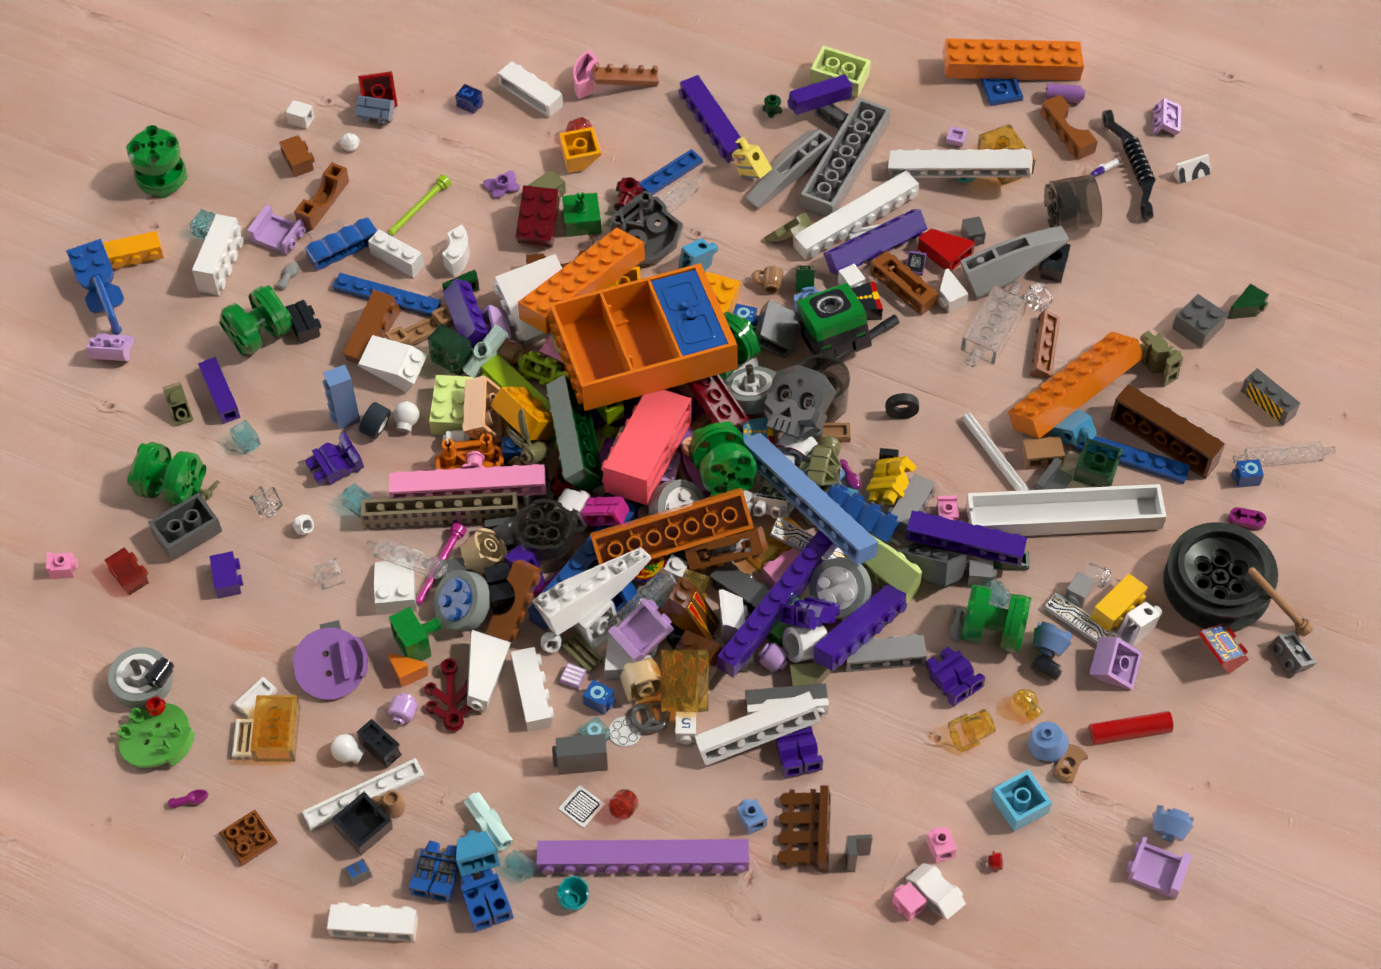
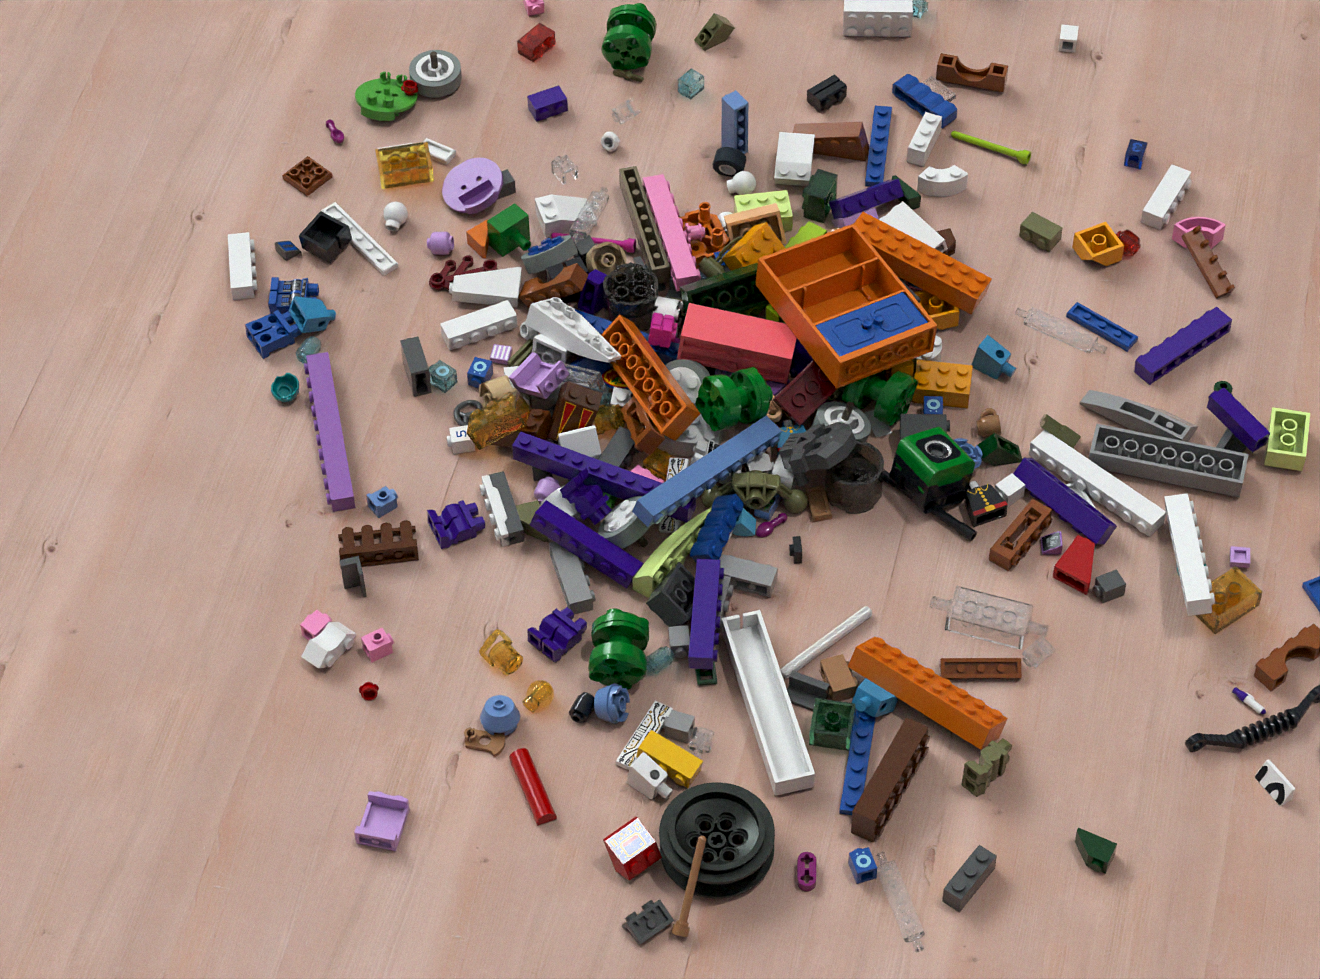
camera: 80 degrees right, 5 degrees down
(159, 673) = (433, 76): black brick -> none
(185, 526) = (586, 65): dark grey brick -> none
(219, 390) = (735, 55): dark purple brick -> none
(266, 313) = (801, 51): green piece -> none
(275, 231) = (924, 52): lavender panel -> none
(290, 271) = (884, 75): light grey piece -> none
(297, 156) = (1017, 47): dark orange brick -> none
(334, 461) = (682, 147): dark purple hips -> none
(349, 142) = (1049, 81): white piece -> none
(352, 498) = (646, 167): clear light blue brick -> none
(374, 108) = (1093, 87): sand blue brick -> none
(378, 86) = (1120, 85): red slope -> none
(379, 743) = (402, 233): black hinge -> none
(391, 803) = (351, 255): medium nougat piece -> none
(422, 330) = (846, 179): medium nougat slope -> none
(488, 821) = (345, 321): light aqua piece -> none
(491, 343) = (825, 218): light aqua piece -> none
(502, 184) = (1039, 201): medium lavender animal -> none
(538, 216) = (998, 227): dark red brick -> none
(581, 214) = (1018, 263): green brick -> none
(581, 806) = (375, 385): white sticker -> none
(623, 804) = (375, 406): clear red head -> none
(624, 732) = (451, 399): white sticker -> none
(627, 190) = (1061, 295): dark red connector -> none
(657, 240) = (1019, 314): dark grey brick -> none
(750, 160) = (1128, 376): light yellow torso -> none
(757, 728) = (463, 484): white brick -> none
(889, 479) = (759, 547): yellow hips -> none
(902, 399) = (858, 550): black tyre -> none
(947, 507) = (744, 604): bright pink brick -> none
(951, 293) = (1021, 575): white slope -> none
(1010, 259) = (1074, 616): light grey wedge -> none
(1021, 800) = (430, 698): medium azure brick -> none
(1054, 265) = (1101, 670): black brick -> none
(1073, 203) = (1165, 660): clear smoke brick -> none
(1115, 662) = (598, 763): lavender slope -> none
(1171, 823) = (426, 822): medium blue cone -> none
(1199, 321) = (1053, 803): dark grey brick -> none

